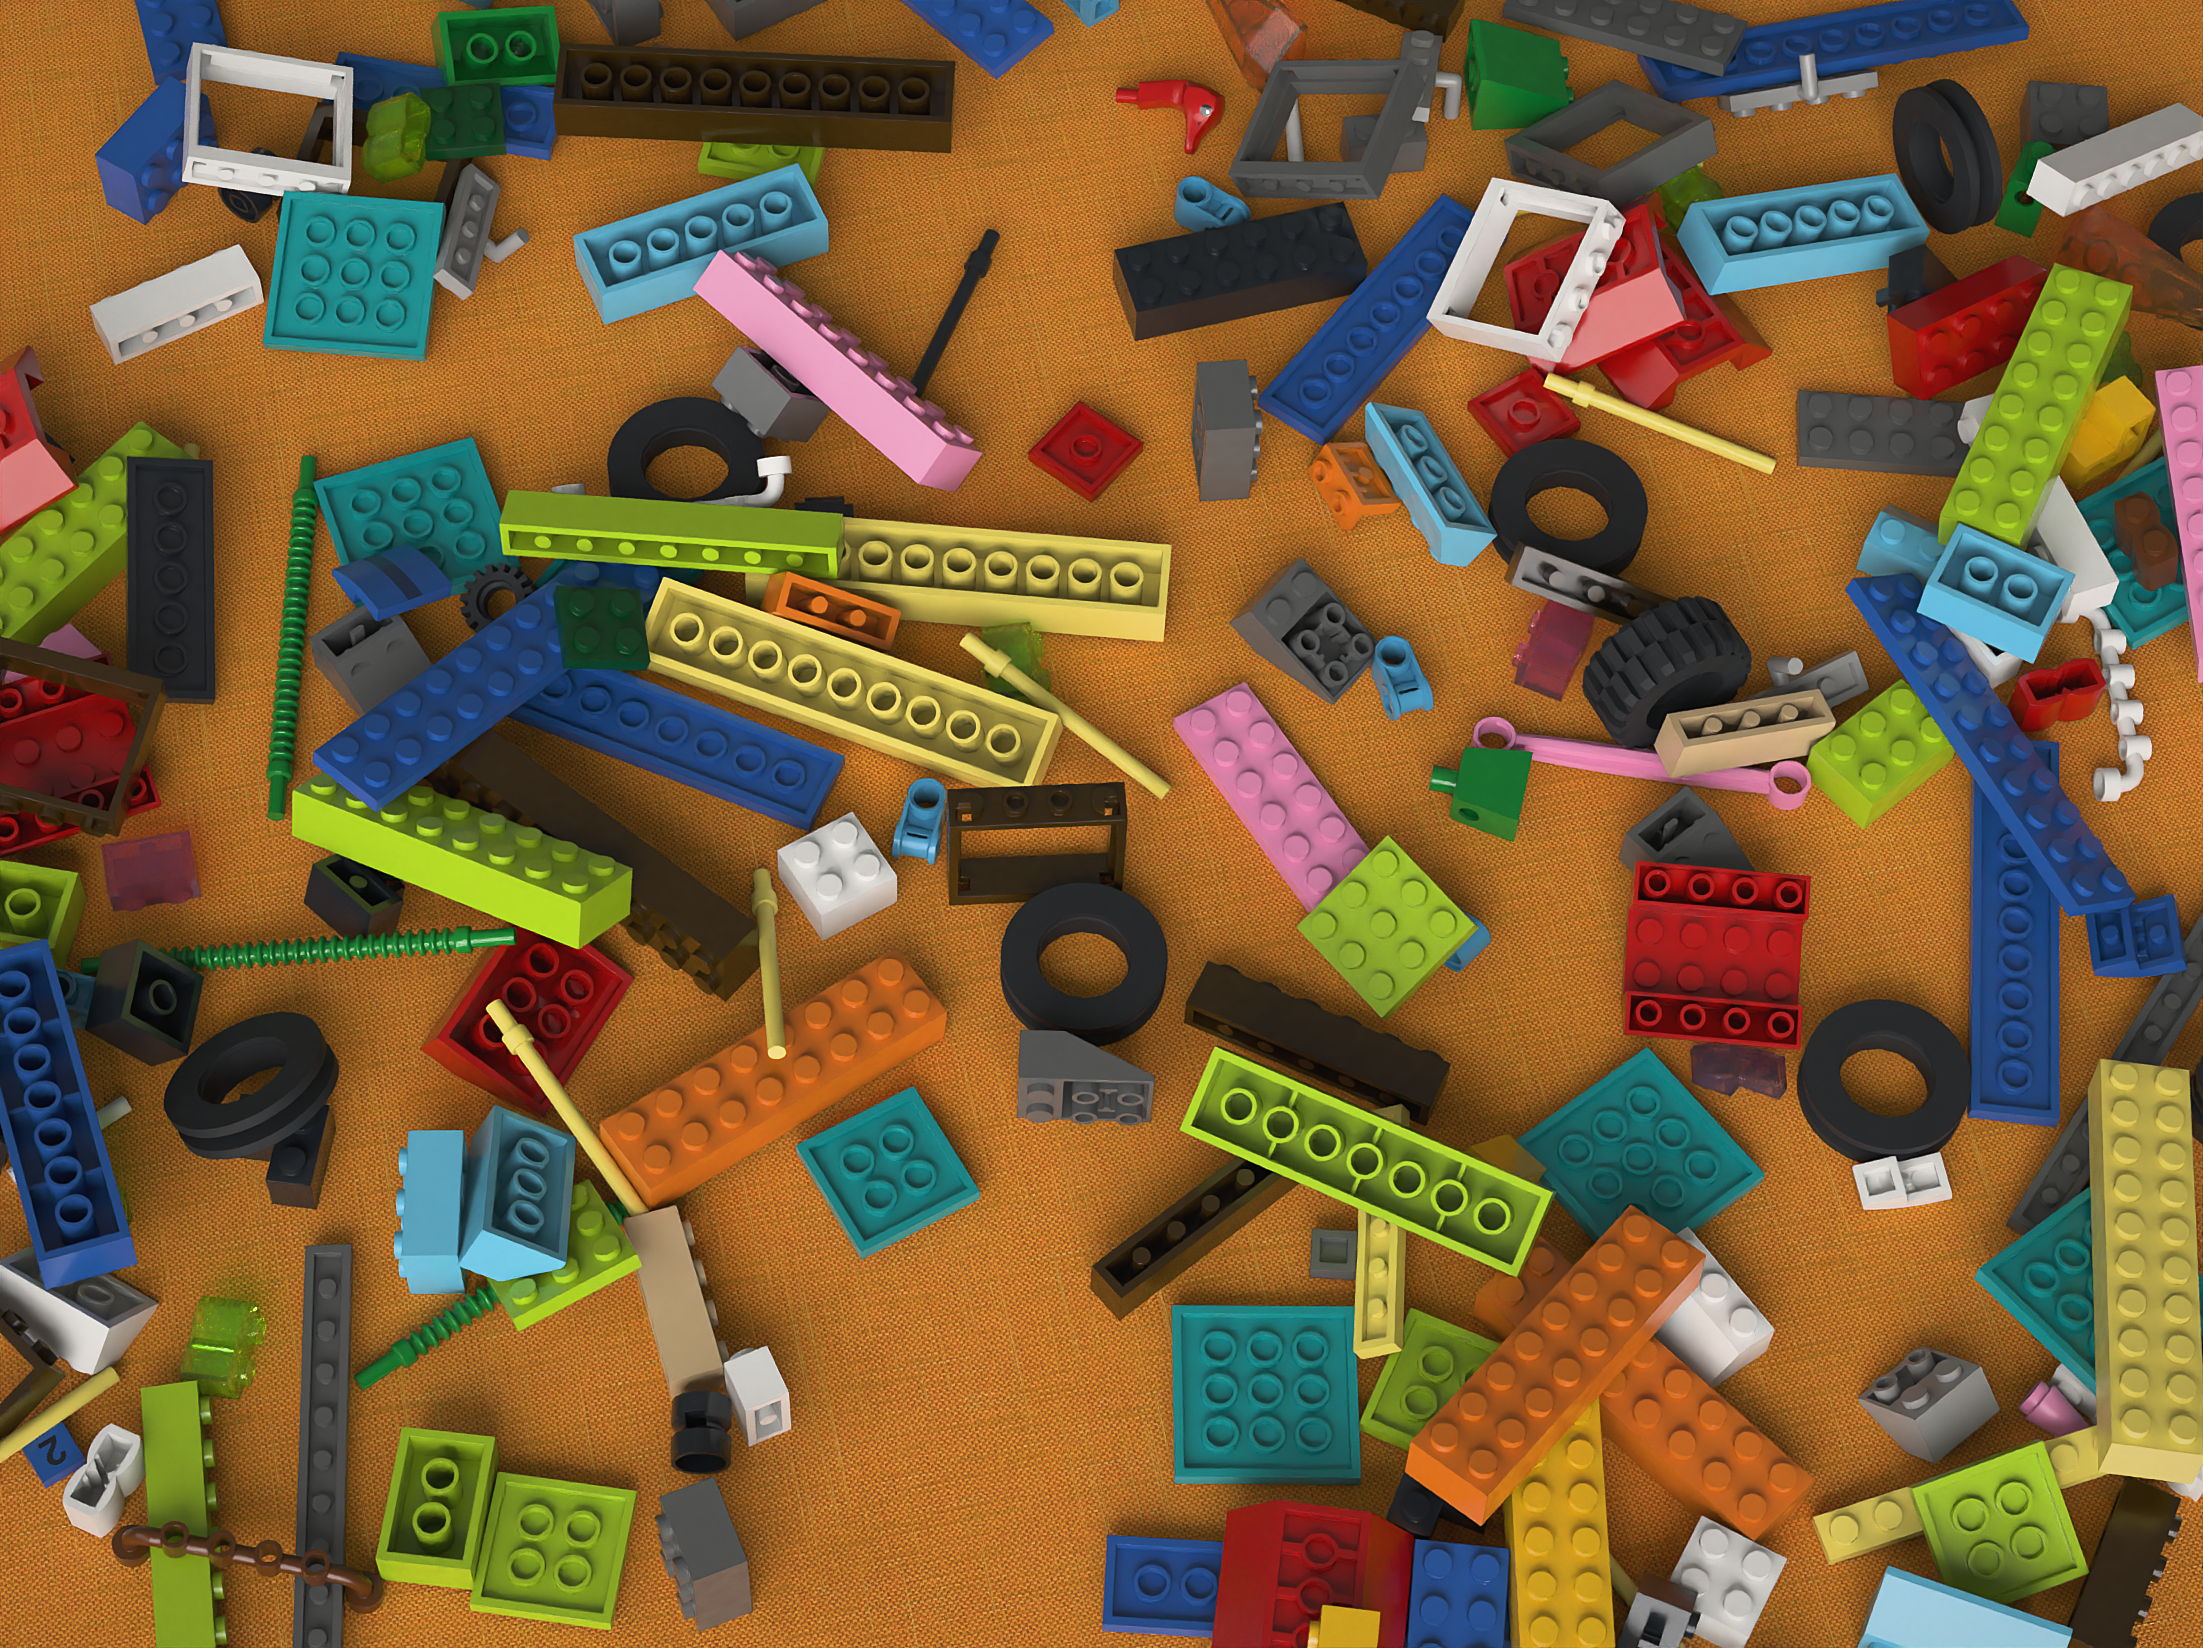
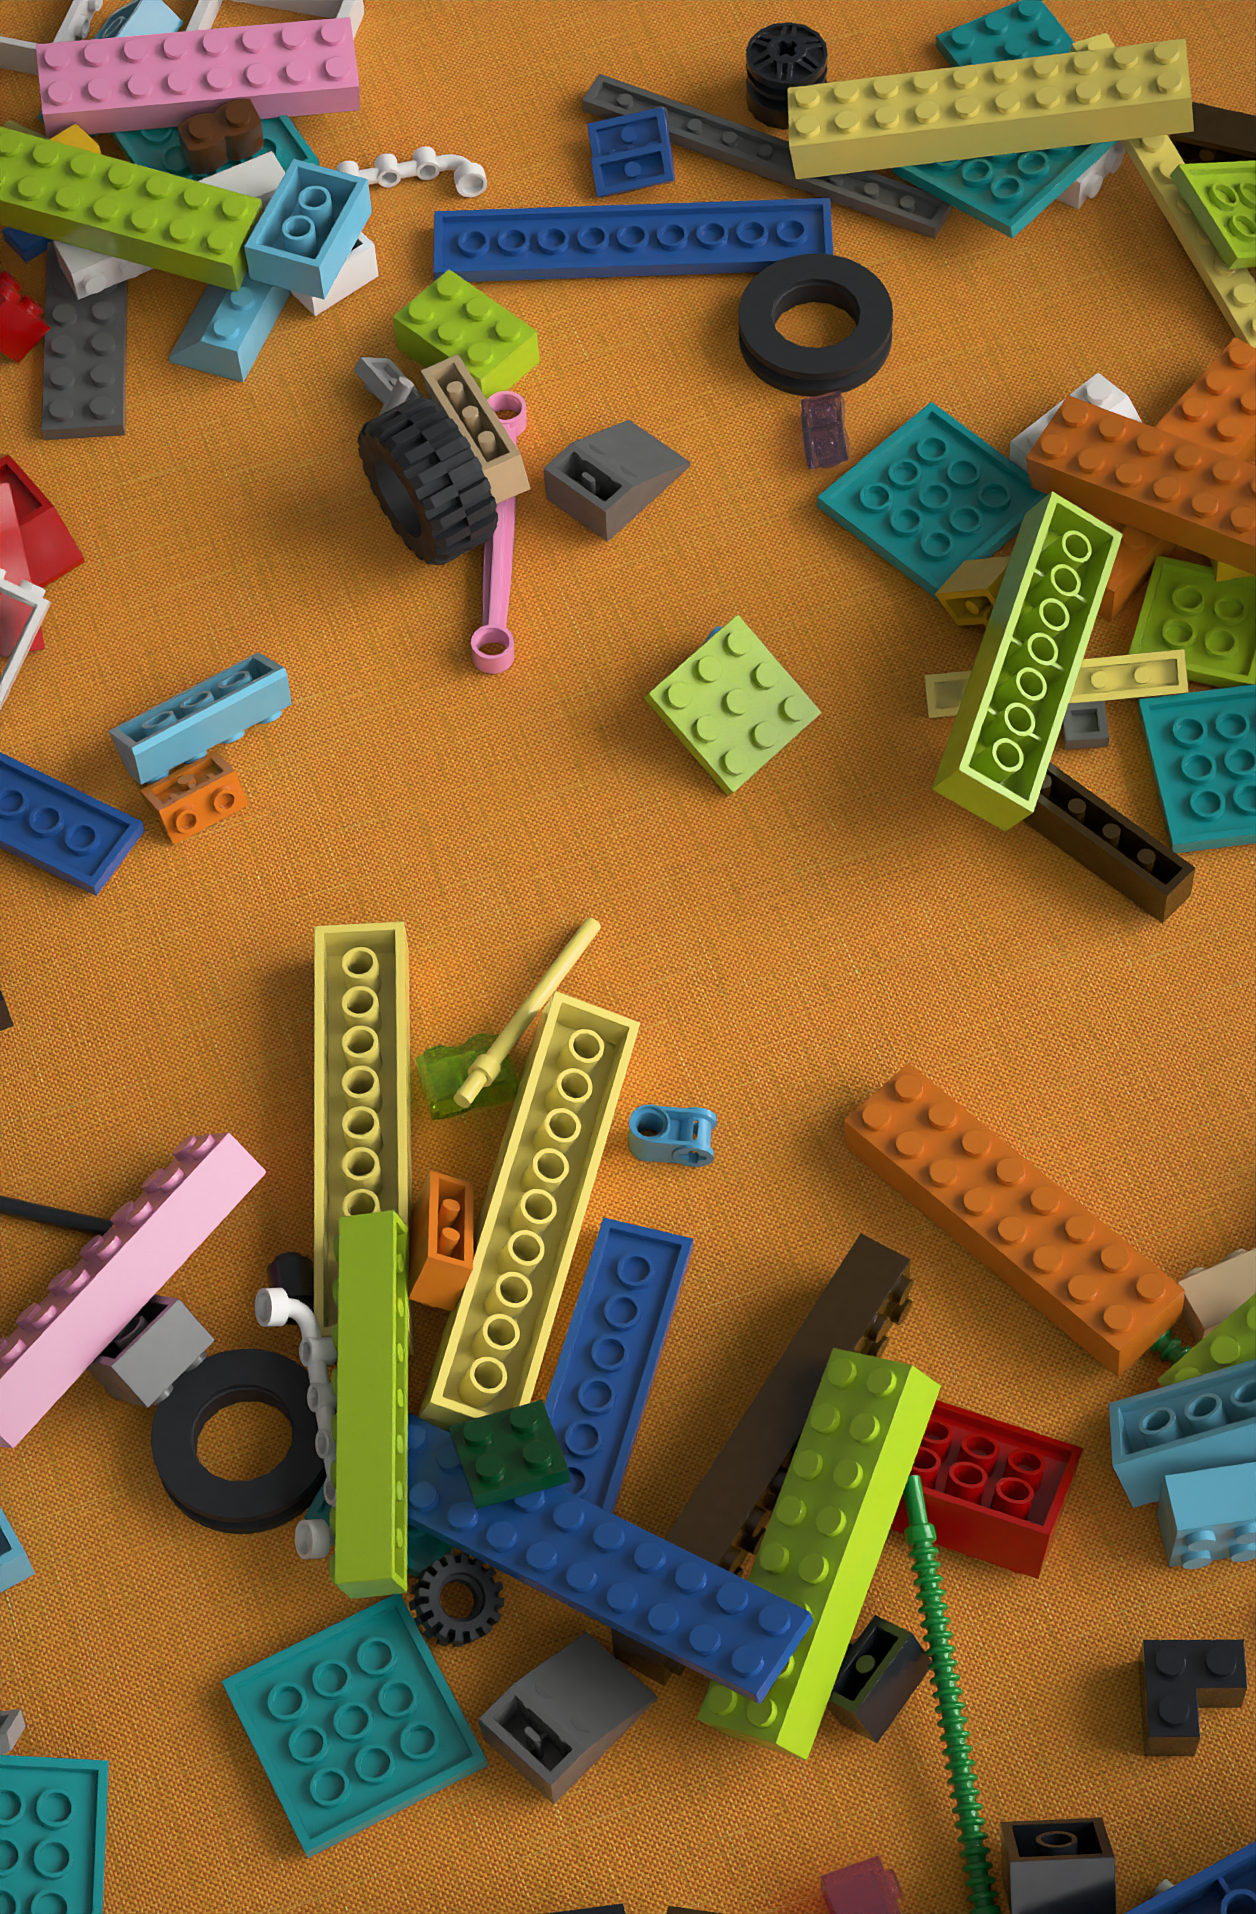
camera: 90 degrees left, 0 degrees up
(270, 1113) = (1075, 1746): black tyre -> none
(297, 583) = (327, 1862): green hose -> none
(393, 581) = (453, 1712): blue slope -> none
(519, 1042) = (1032, 1456): light yellow bar -> none
(764, 907) = (799, 1267): light yellow bar -> none
(837, 876) = (752, 1202): white brick -> none
(887, 1172) = (1081, 1110): teal plate -> none
(1030, 807) = (713, 993): dark brown window -> none
(1078, 1082) = (959, 953): dark grey slope -> none
(1085, 451) = (175, 1046): red plate -> none
(1088, 910) = (812, 912): black tyre -> none
(1225, 430) = (163, 892): dark grey brick -> none
(1272, 792) = (582, 827): bright pink plate -> none
(1306, 632) = (383, 819): dark grey slope -> none
(1316, 1041) = (861, 761): dark brown brick -> none
(1401, 685) = (435, 730): dark azure piece -> none
(1486, 789) = (553, 644): green torso -> none
(1523, 413) = (92, 655): red plate -> none
(1553, 650) = (380, 604): clear pink brick -> none
(1575, 466) = (203, 560): black tyre -> none
(1580, 585) = (322, 564): dark brown brick -> none
(1585, 394) = (70, 595): light yellow bar -> none
(1714, 955) = (725, 451): red slope -> none
(1903, 1183) = (912, 313): white slope -> none
(1930, 1402) = (1124, 277): light grey slope -> none
(1992, 746) = (452, 249): blue plate -> none
(2051, 1410) = (1110, 198): bright pink cone -> none
(2056, 694) = (391, 212): red brick -> none

